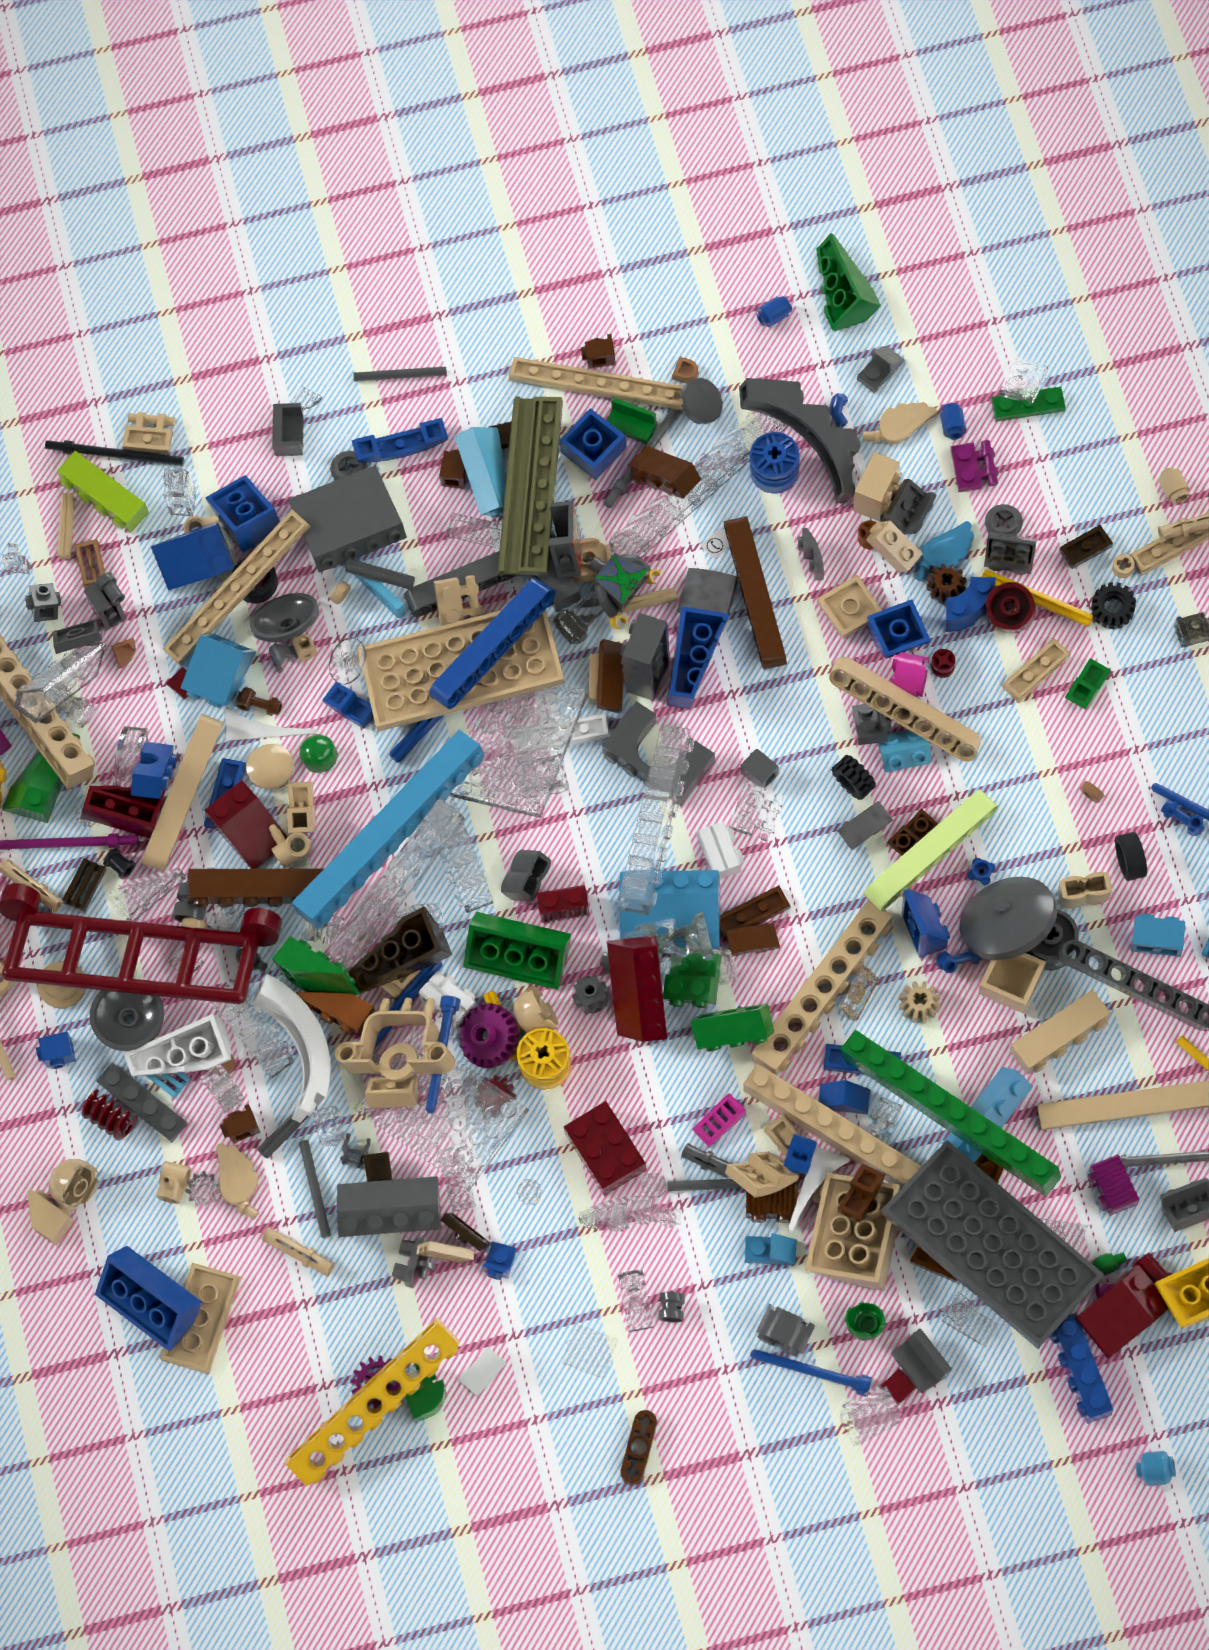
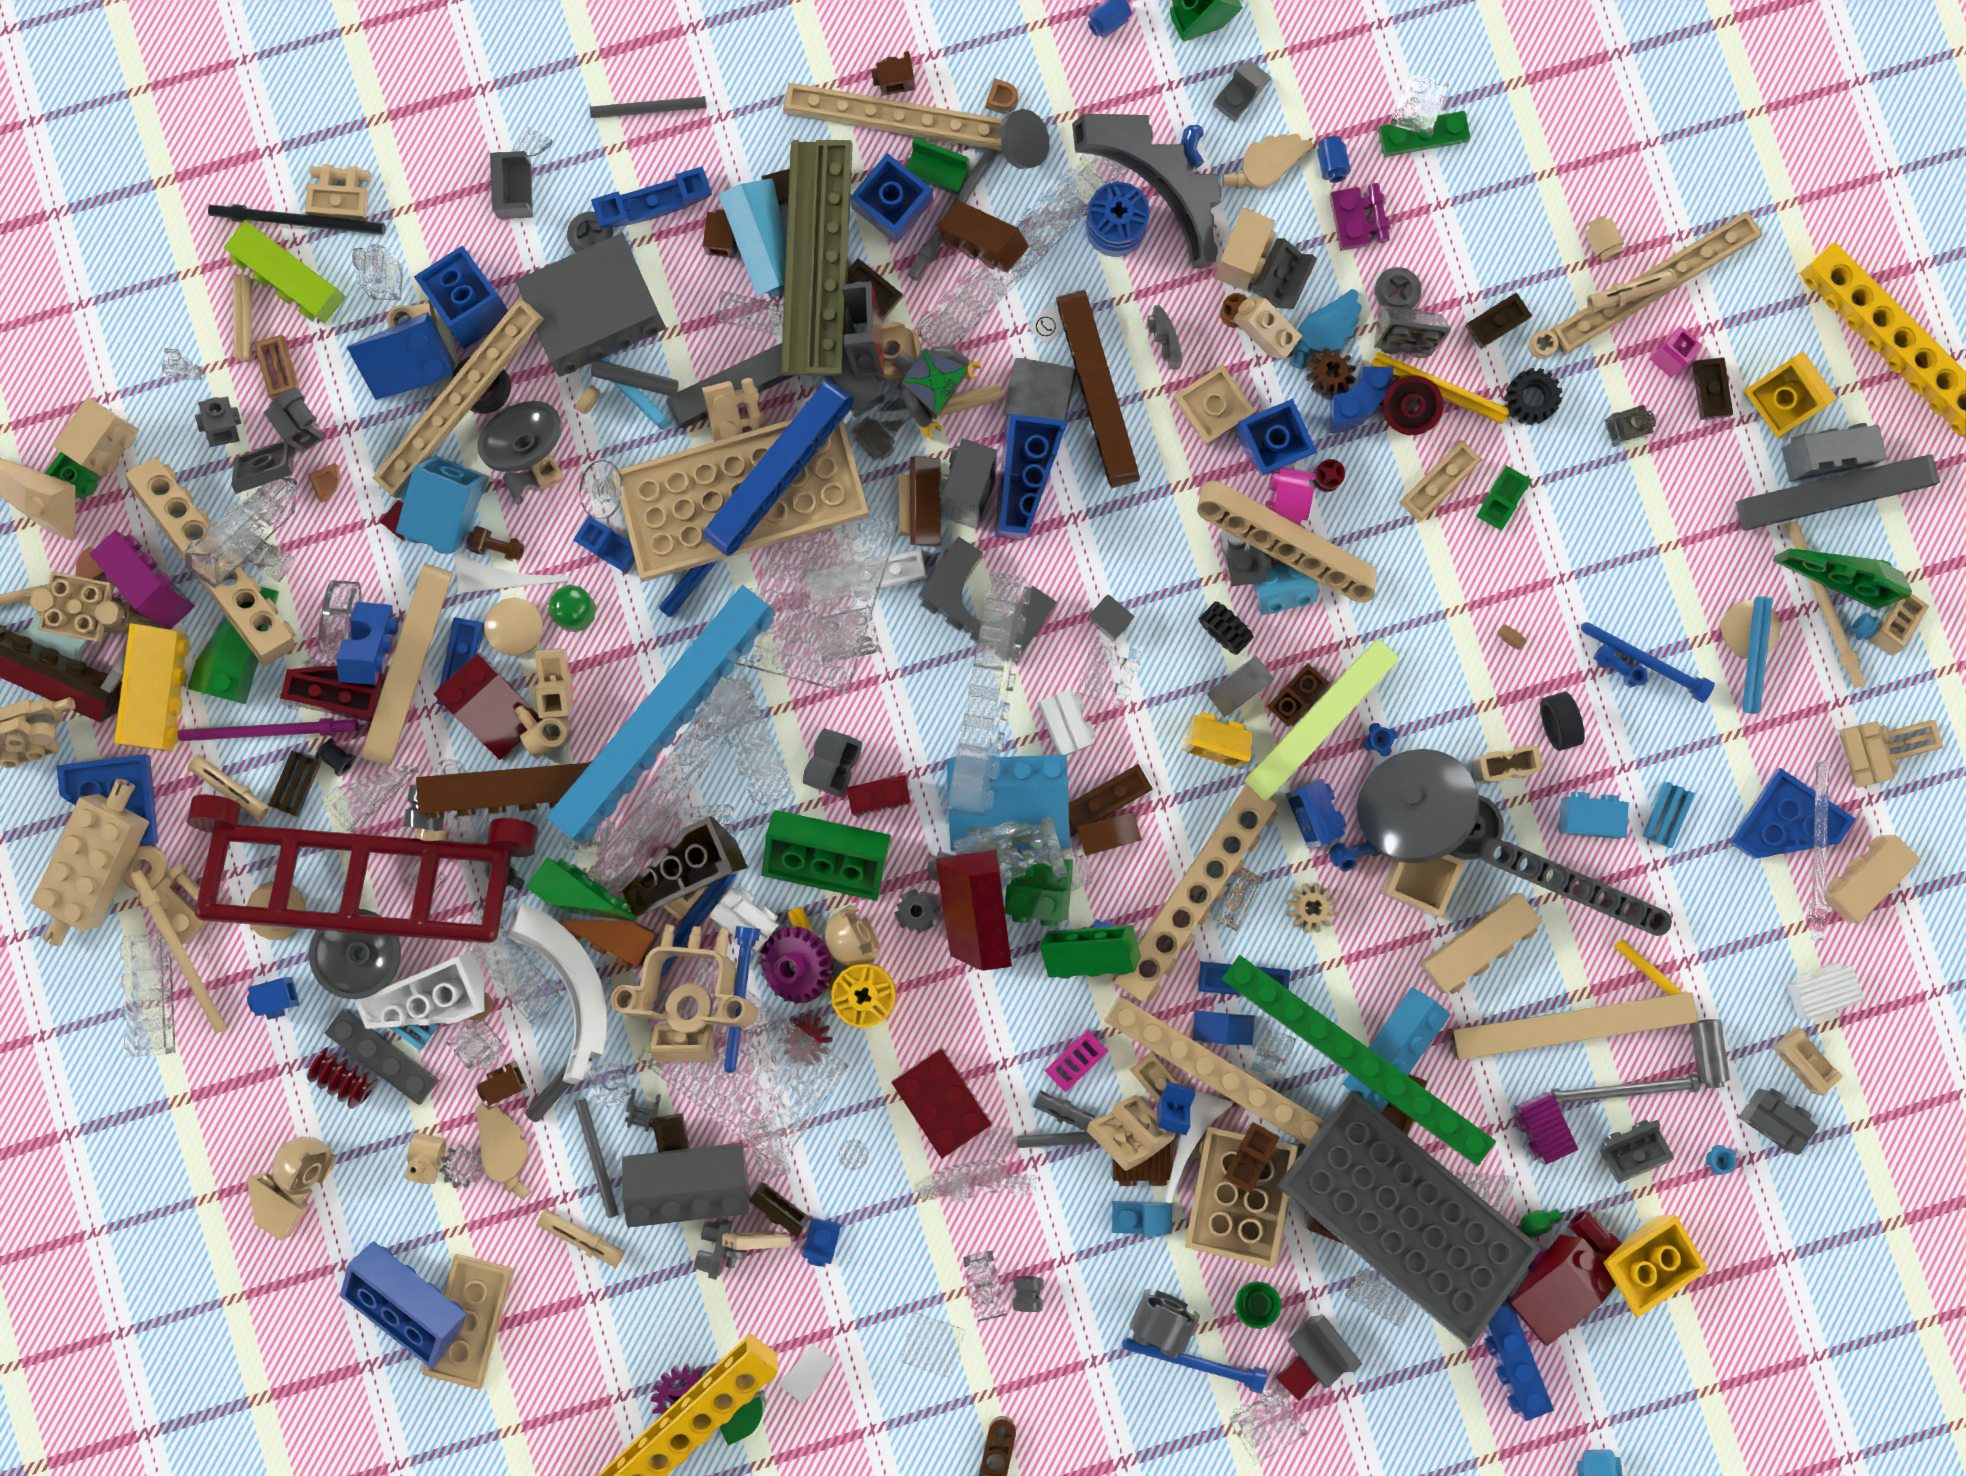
camera: 10 degrees left, 15 degrees up
(586, 518) = (886, 294): none -> dark brown plate
(843, 867) = (1218, 741): none -> yellow slope

